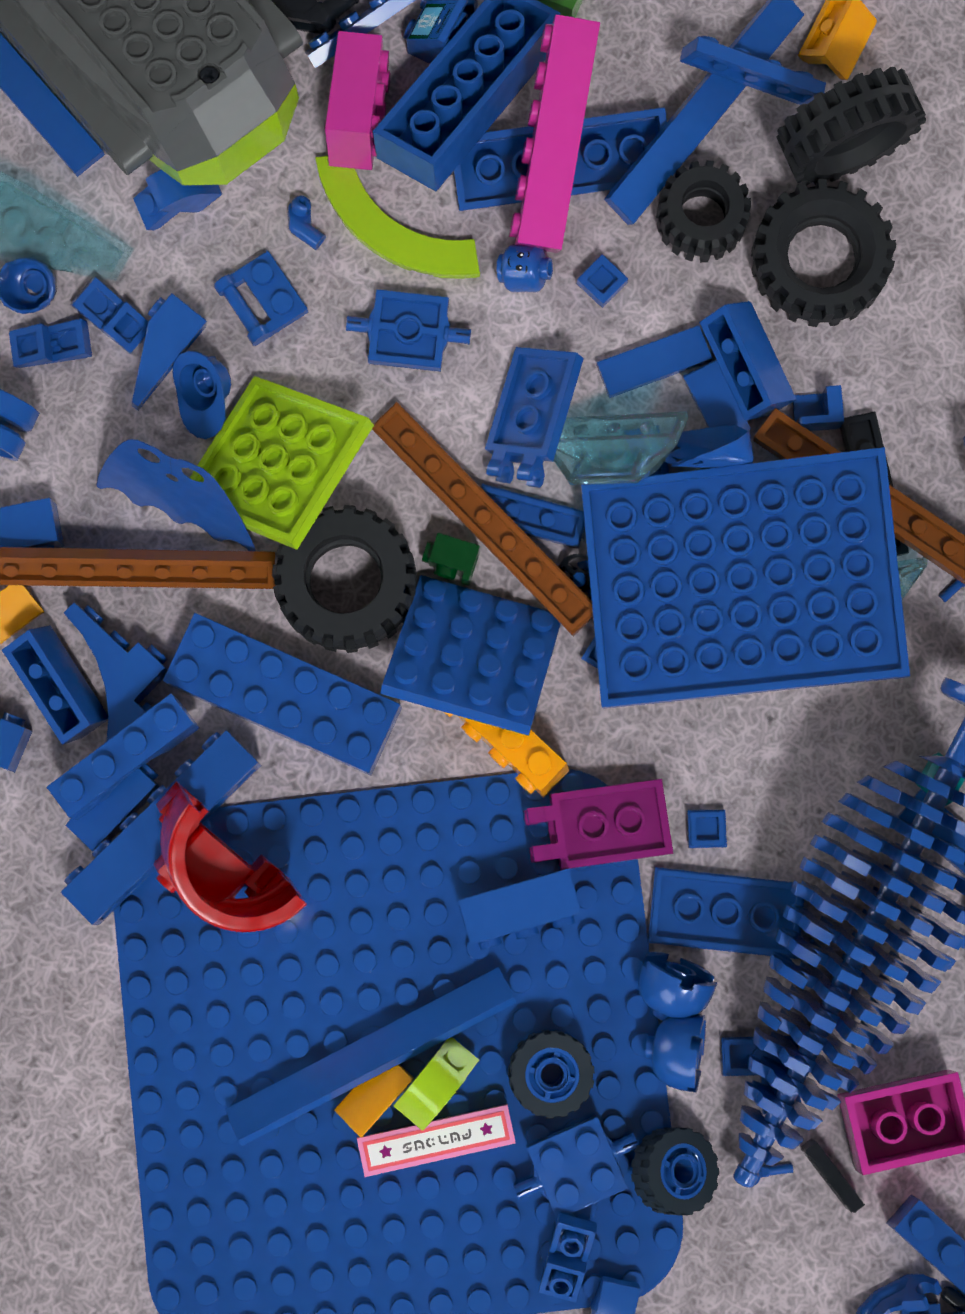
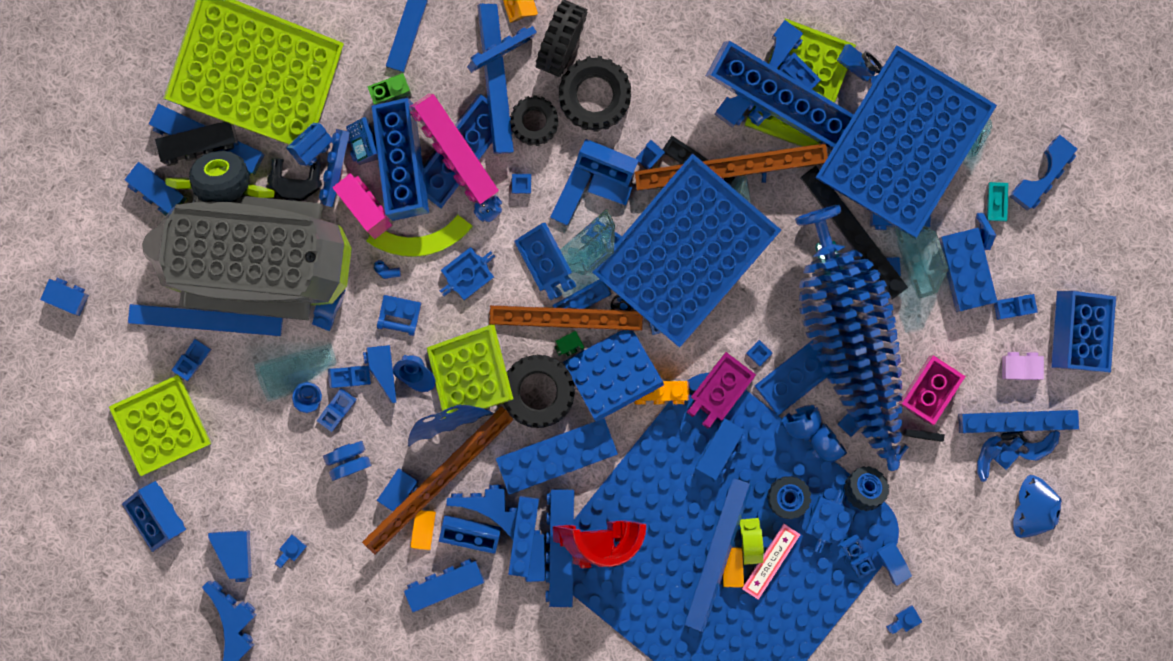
camera: 45 degrees left, 5 degrees up
(713, 448) = (627, 210): blue piece -> none

